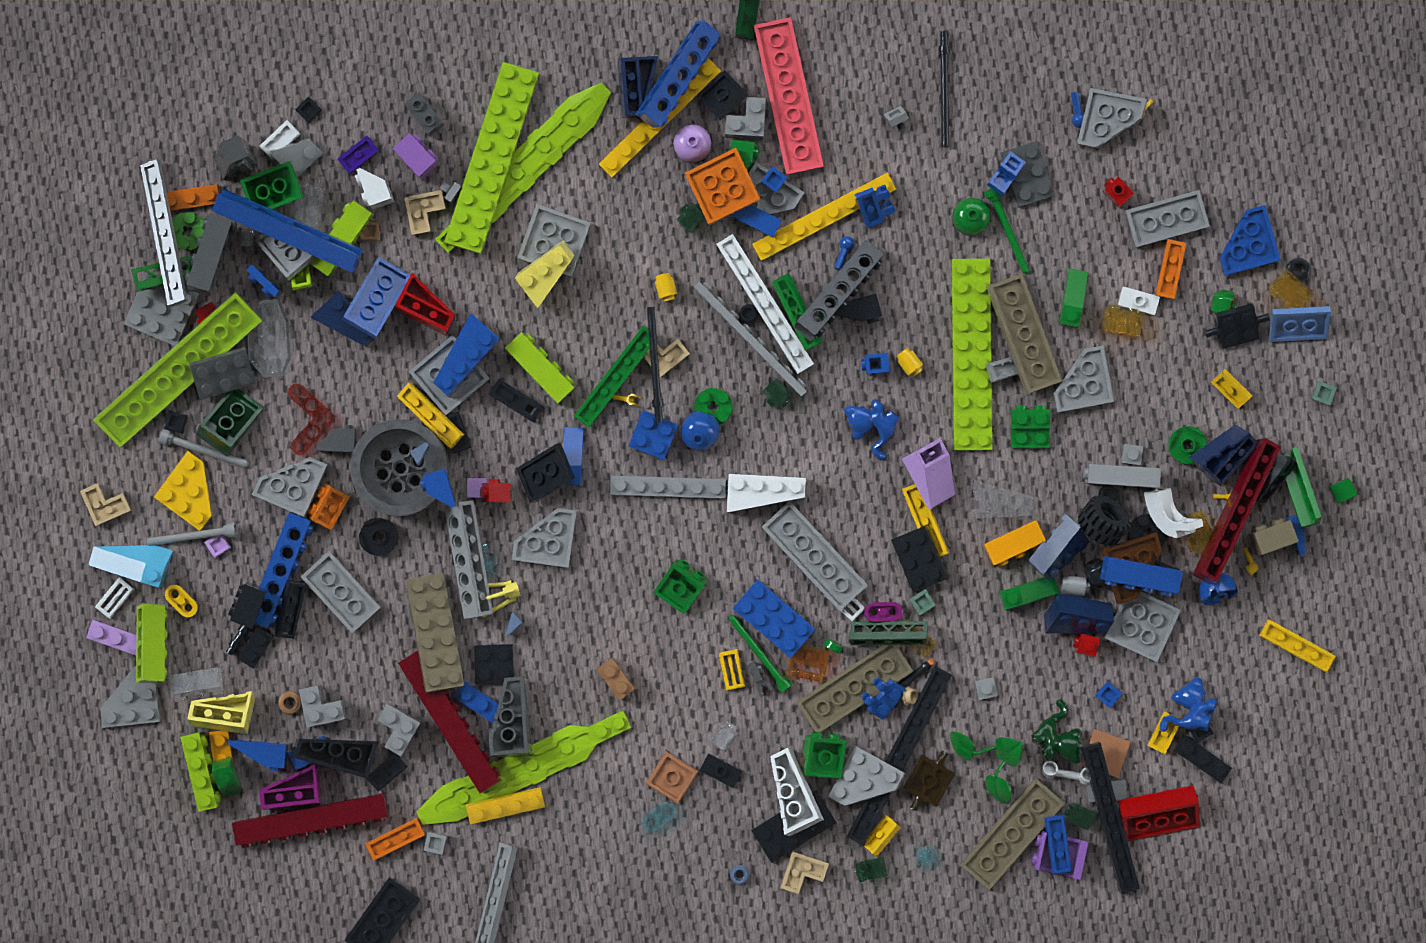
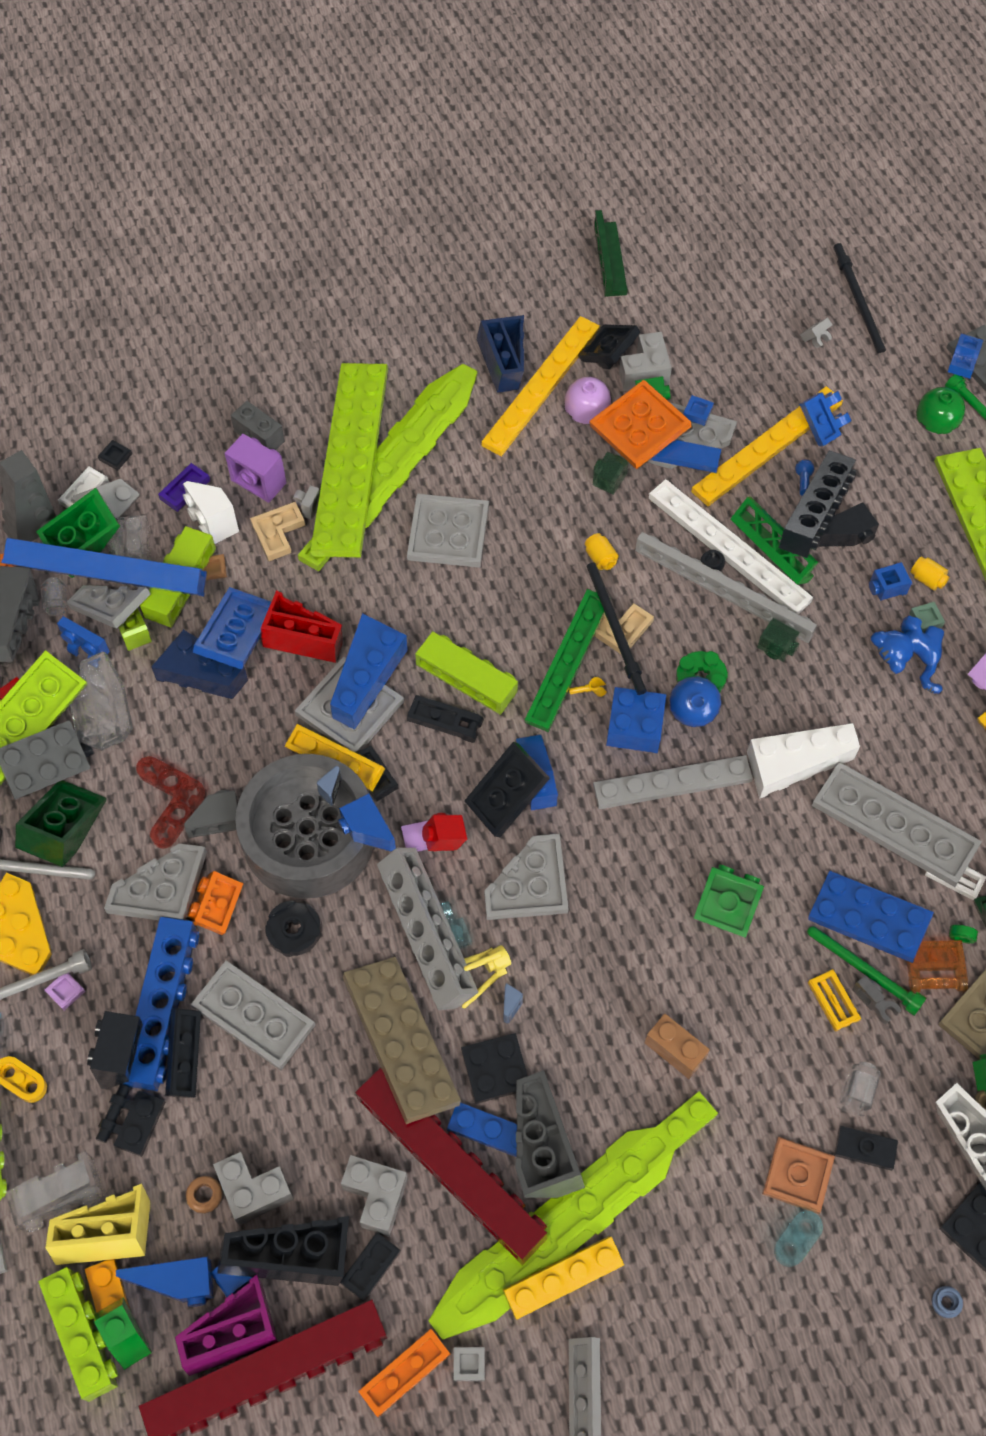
camera: 10 degrees left, 25 degrees down
(544, 272) = (446, 557): light yellow wedge -> none
(649, 111) = (551, 329): blue brick -> none
(788, 96) = (686, 335): coral plate -> none
(894, 398) = (929, 615): none -> sand green plate

